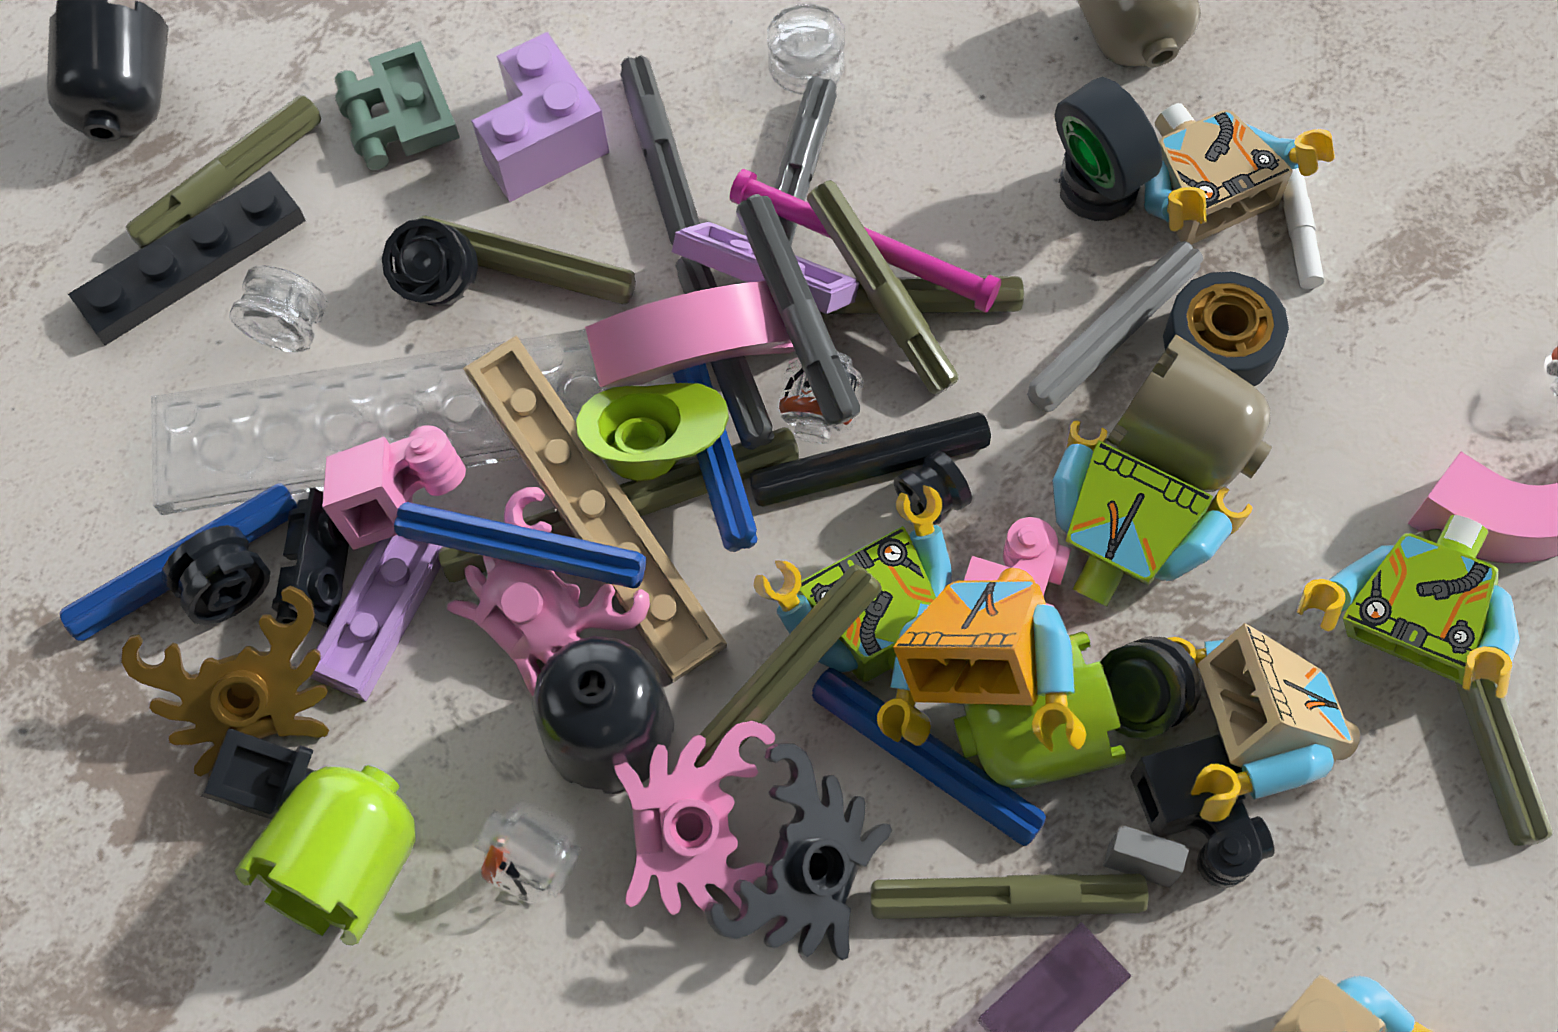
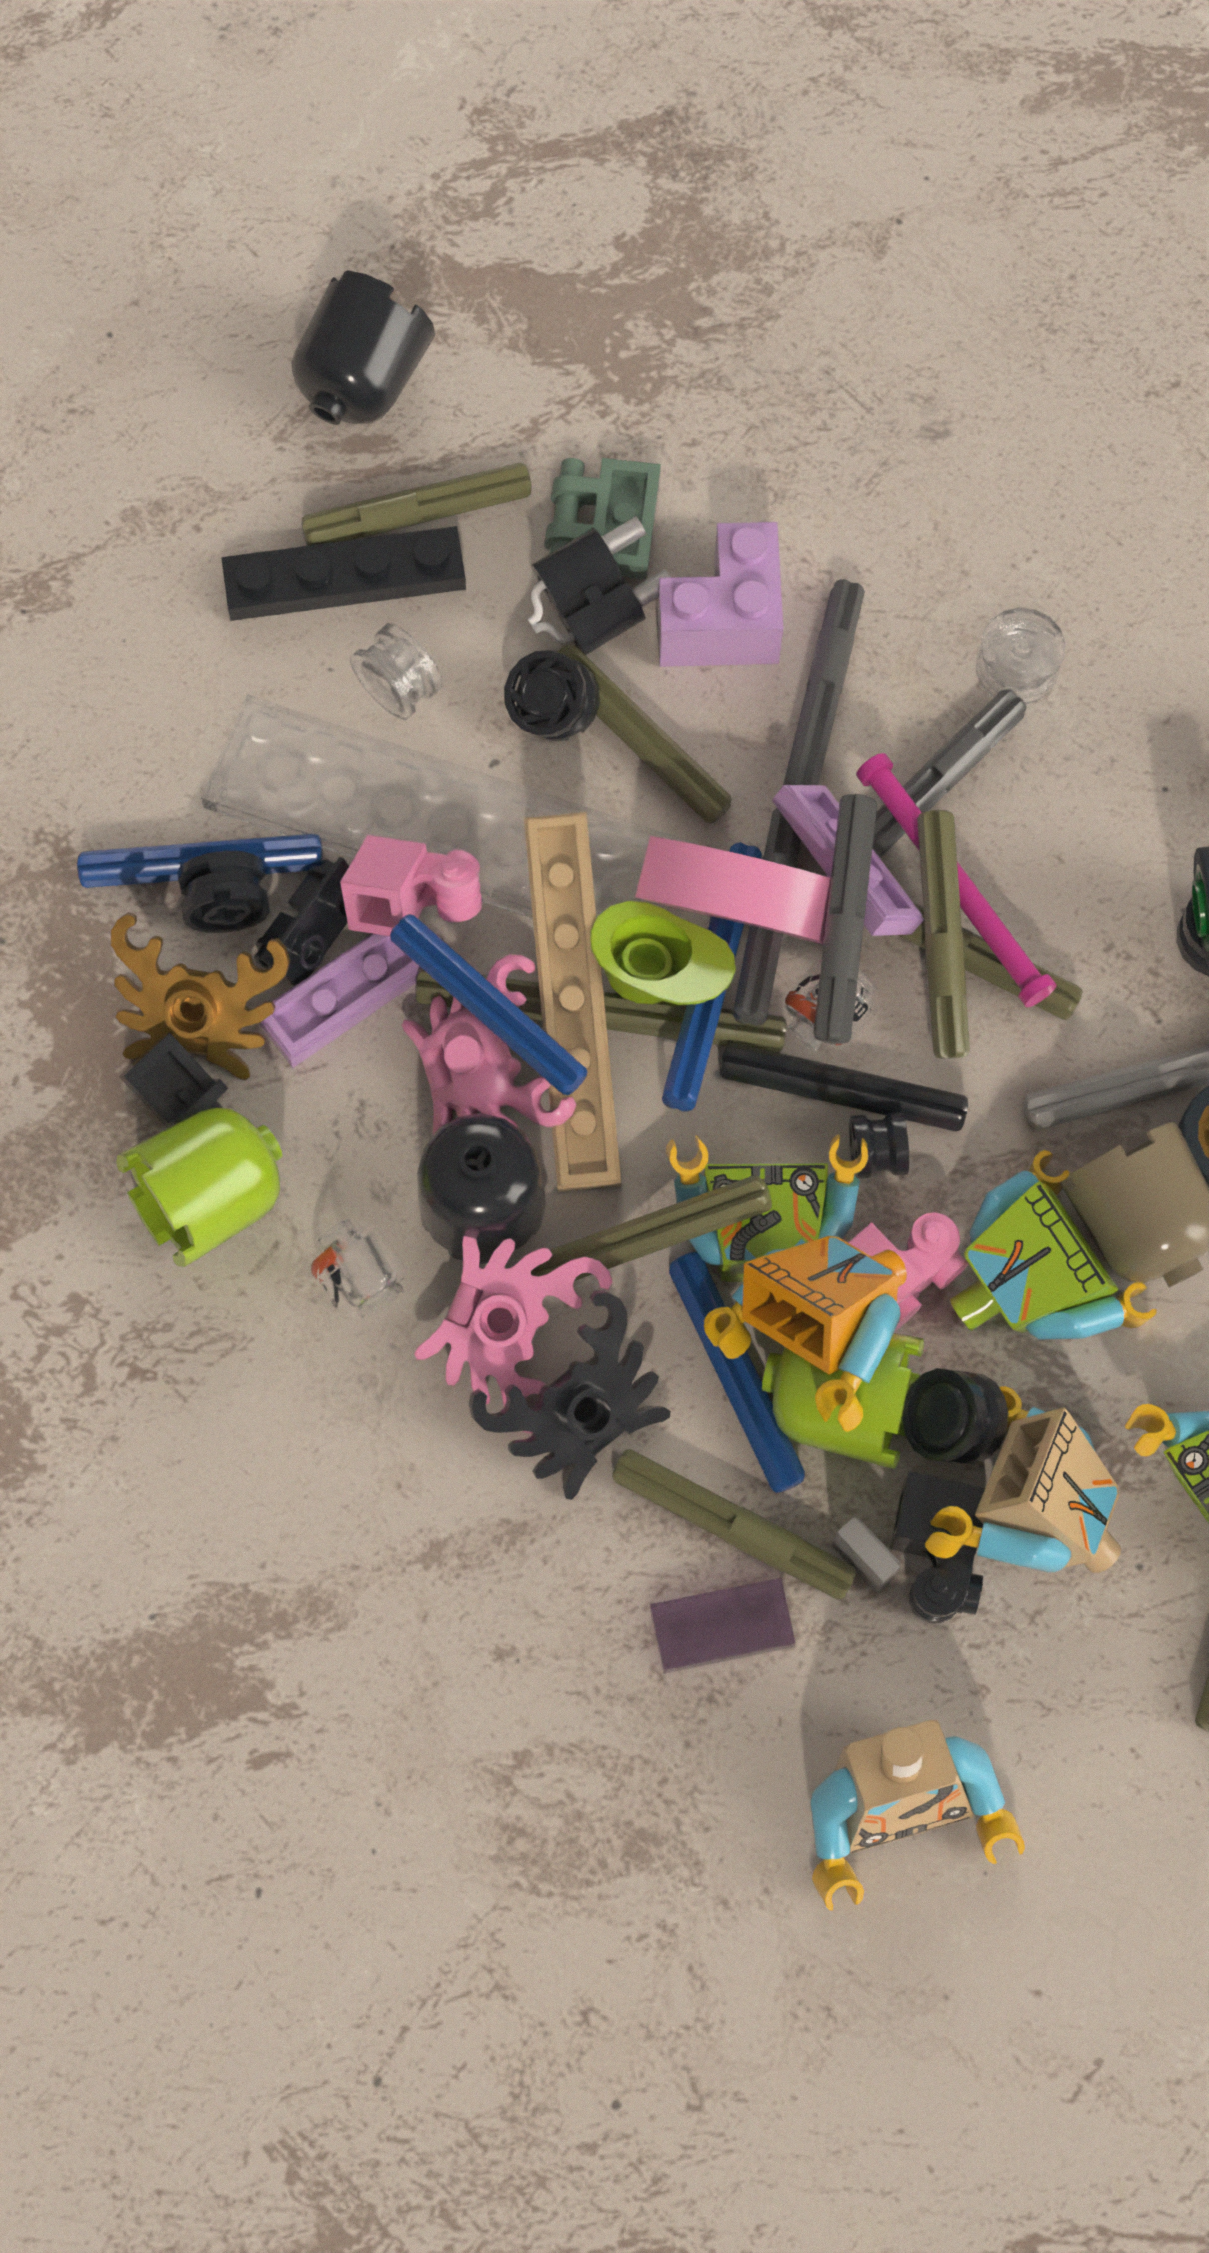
camera: 25 degrees right, 5 degrees up
(414, 162) = (590, 590): none -> black piece

